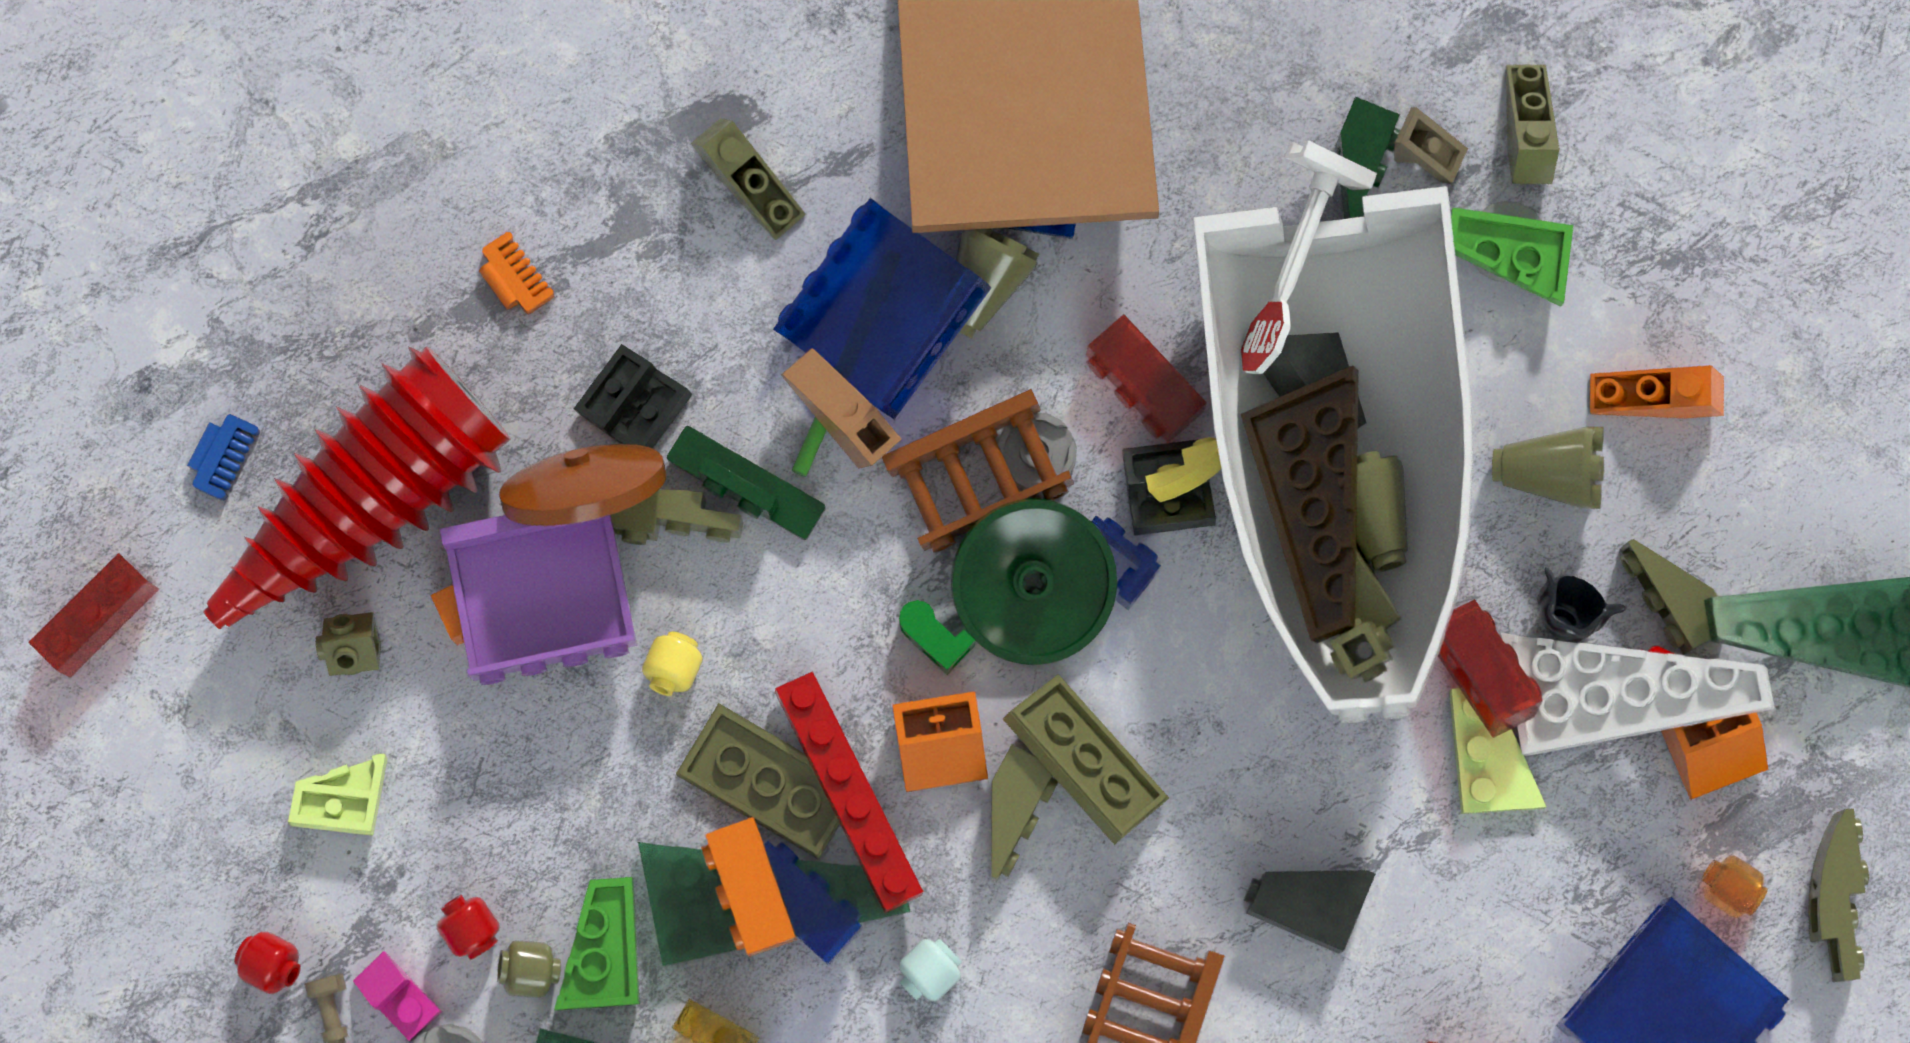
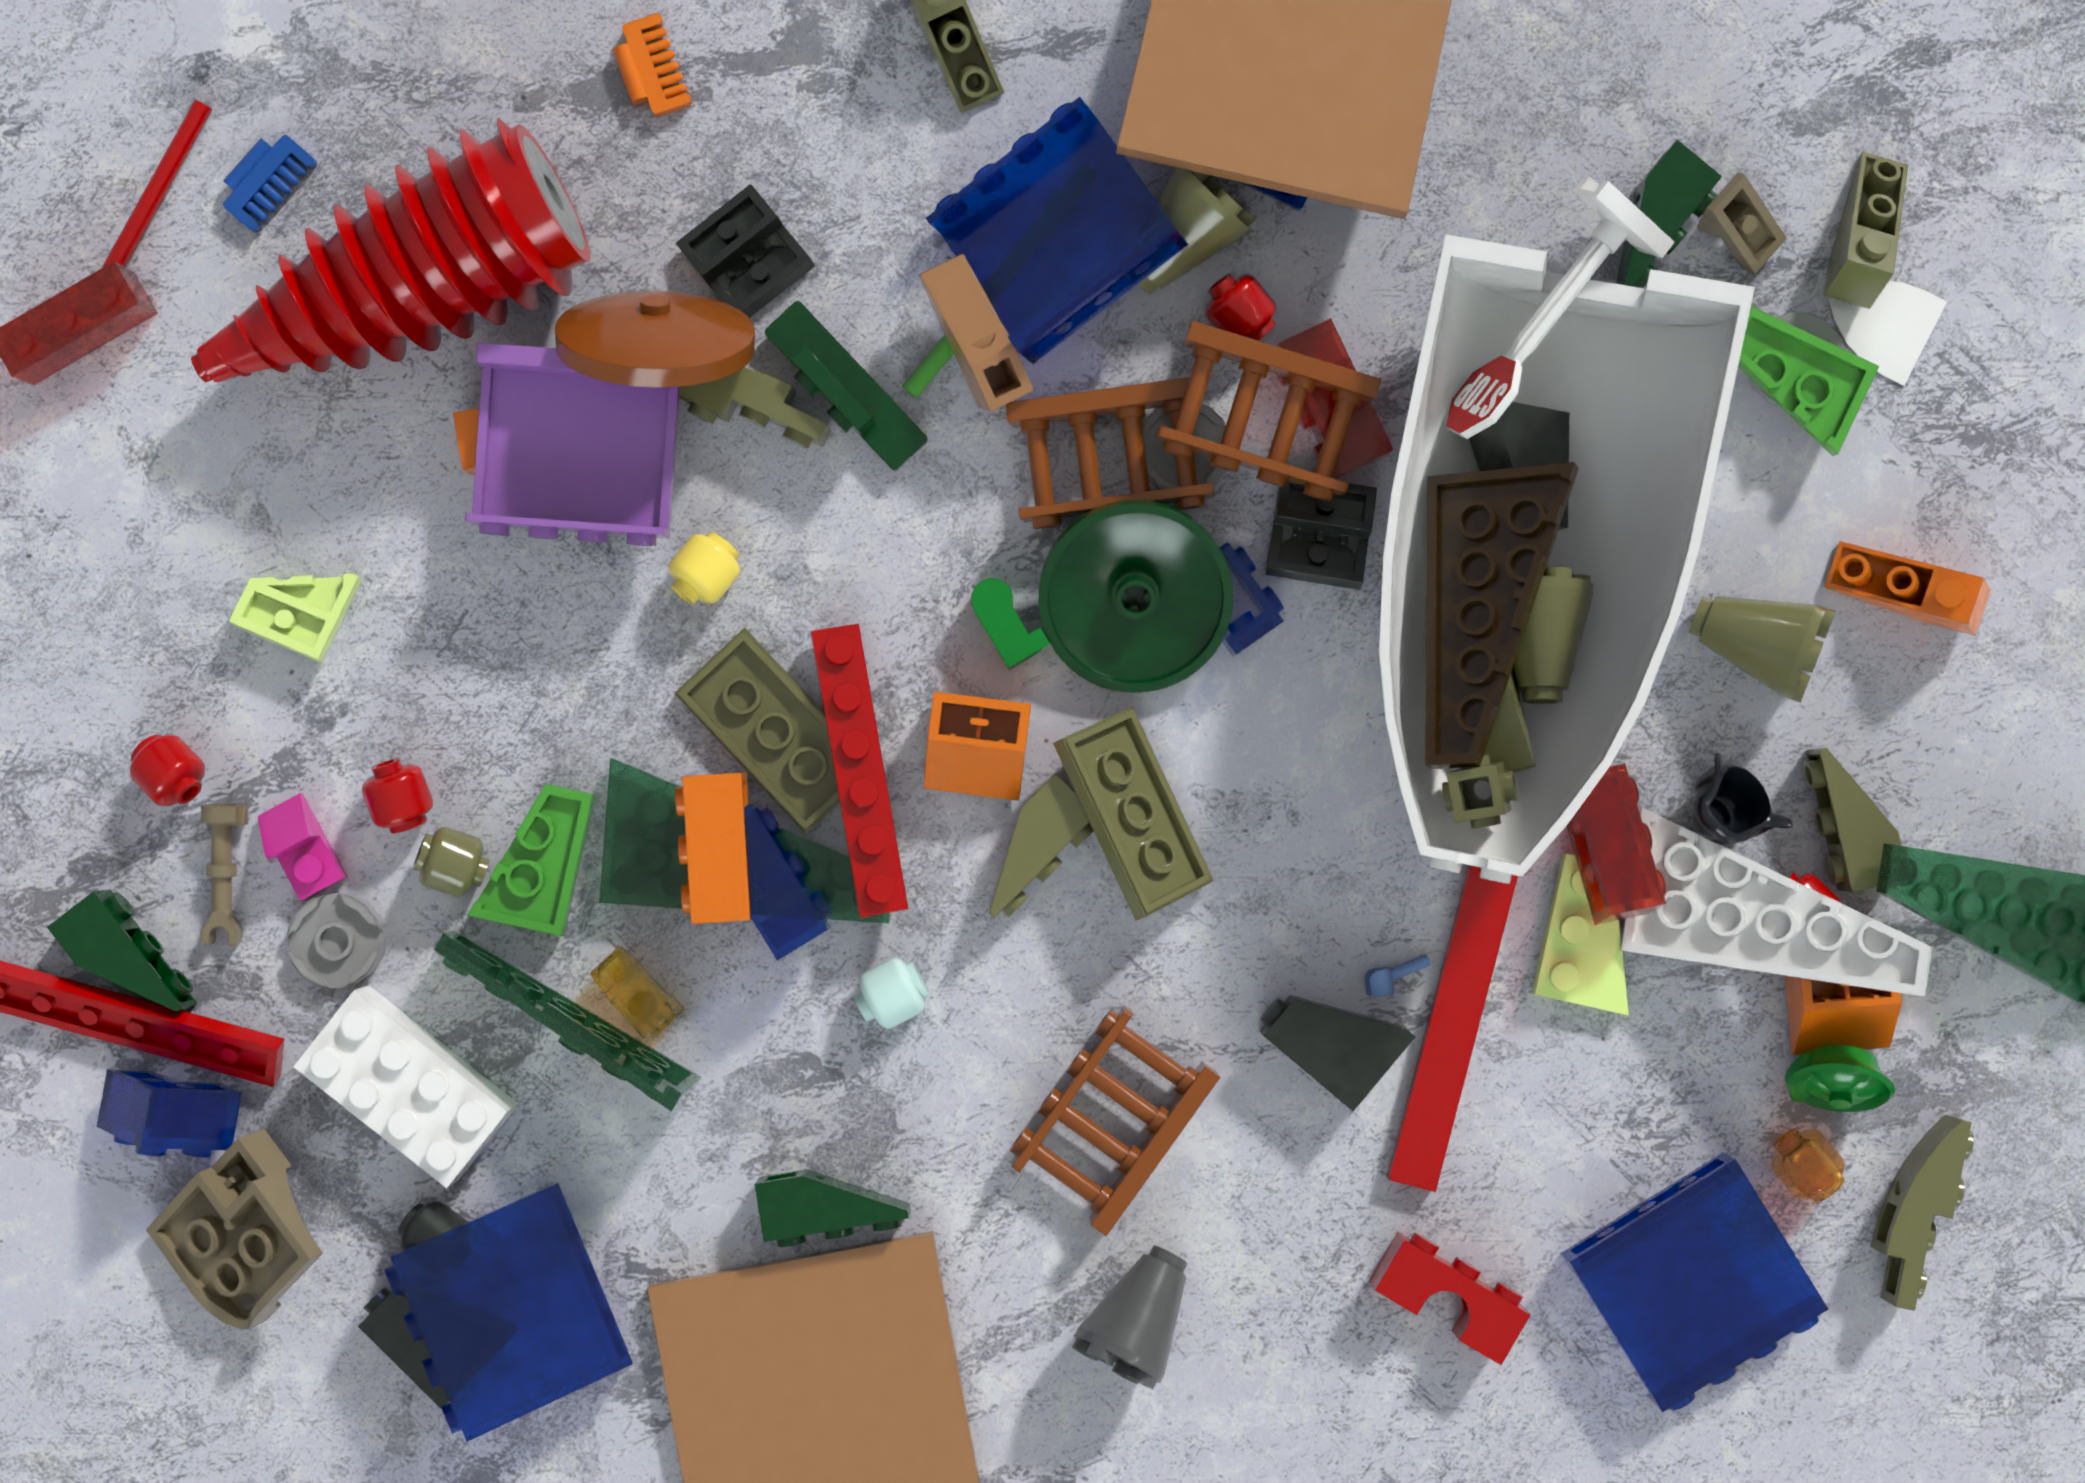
camera: 15 degrees right, 10 degrees up
(134, 483) = (159, 184): none -> red bar
(349, 644) = (349, 441): olive brick -> none
(1049, 329) = (1241, 306): none -> red head
(1074, 363) = (1255, 362): none -> dark orange fence
(1199, 465) = (1363, 519): light yellow slope -> none
(1333, 839) = (1380, 980): none -> medium blue hand
(1404, 859) = (1451, 1030): none -> red tile
(1575, 195) = (1892, 329): none -> white sticker
(1734, 807) = (1838, 1079): none -> green piece

